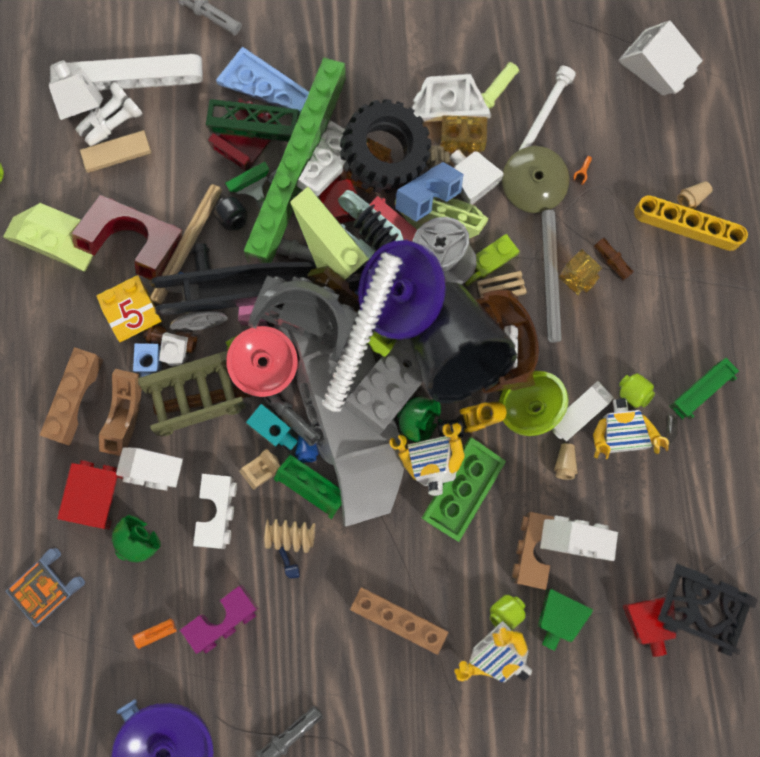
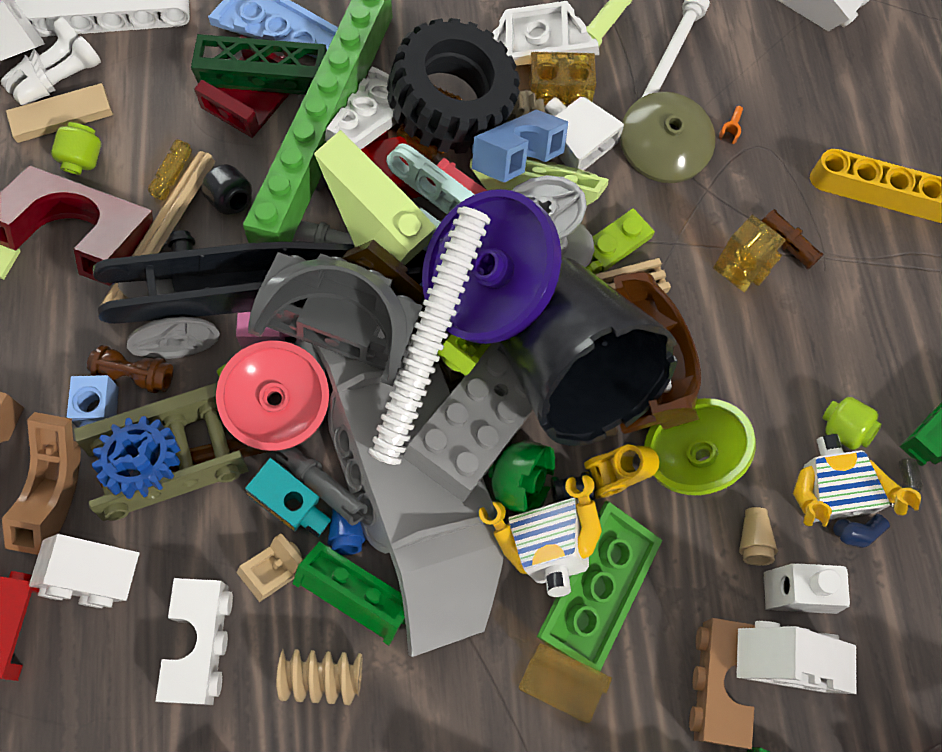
camera: 10 degrees left, 10 degrees down
(128, 308) = (63, 324): yellow slope -> none
(129, 180) = (76, 148): none -> lime head
(133, 541) = (53, 697): green cylinder -> none
(173, 349) = (133, 383): white bracket -> none
(176, 410) = (136, 457): none -> blue gear
(191, 196) = (169, 169): none -> clear yellow axle
(250, 183) = (254, 145): green piece -> none
(291, 571) = (322, 738): dark blue hand -> none
(374, 228) = (437, 187): black piece -> none
(437, 546) = (564, 683): none -> clear yellow panel
(551, 276) = (704, 267): light grey axle -> none
(582, 411) = (775, 457): white slope -> none
(592, 496) = (811, 588): none -> white torso
(633, 463) = (861, 534): none -> dark blue arm
(694, 195) = (894, 149): tan cone -> none

